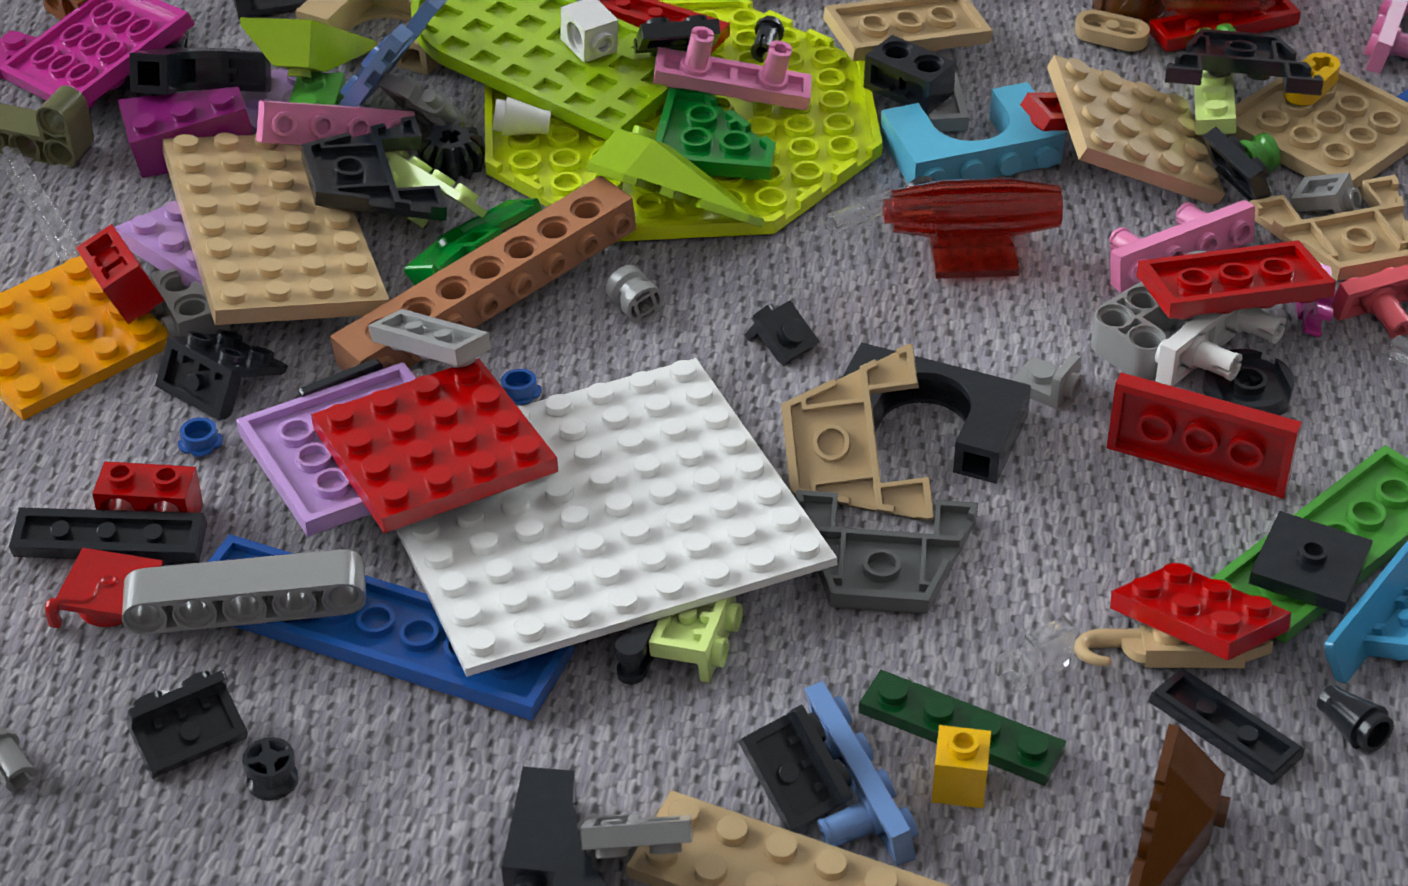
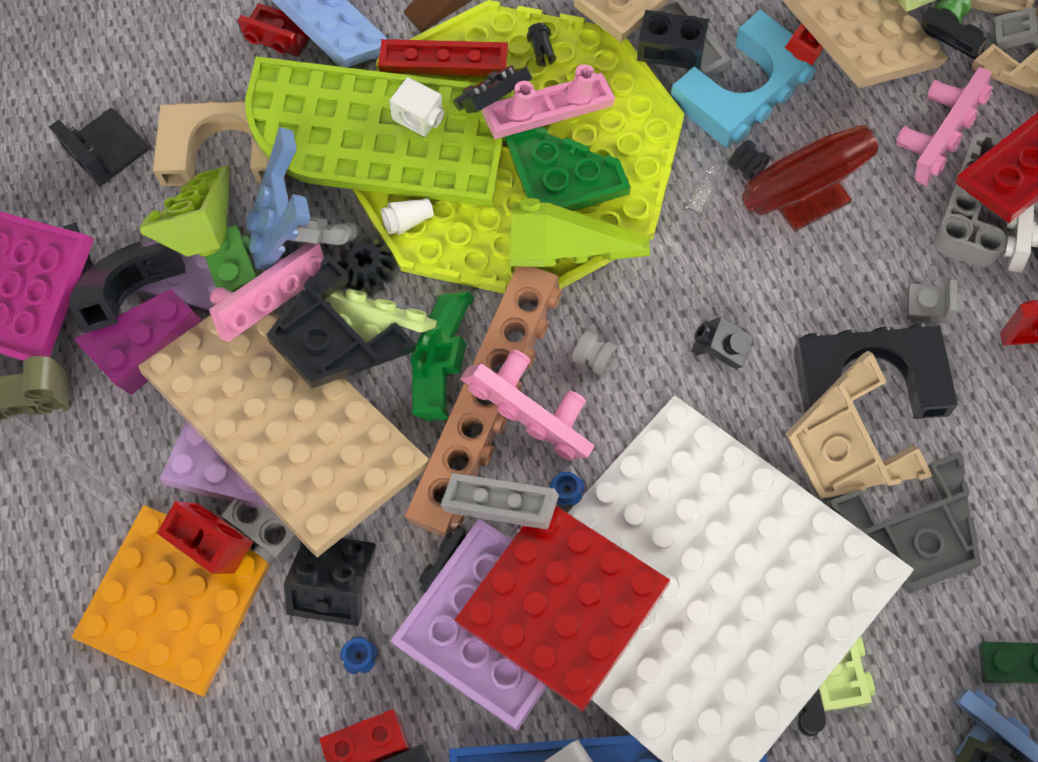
camera: 20 degrees left, 25 degrees up
(523, 304) = (515, 405): none -> bright pink plate

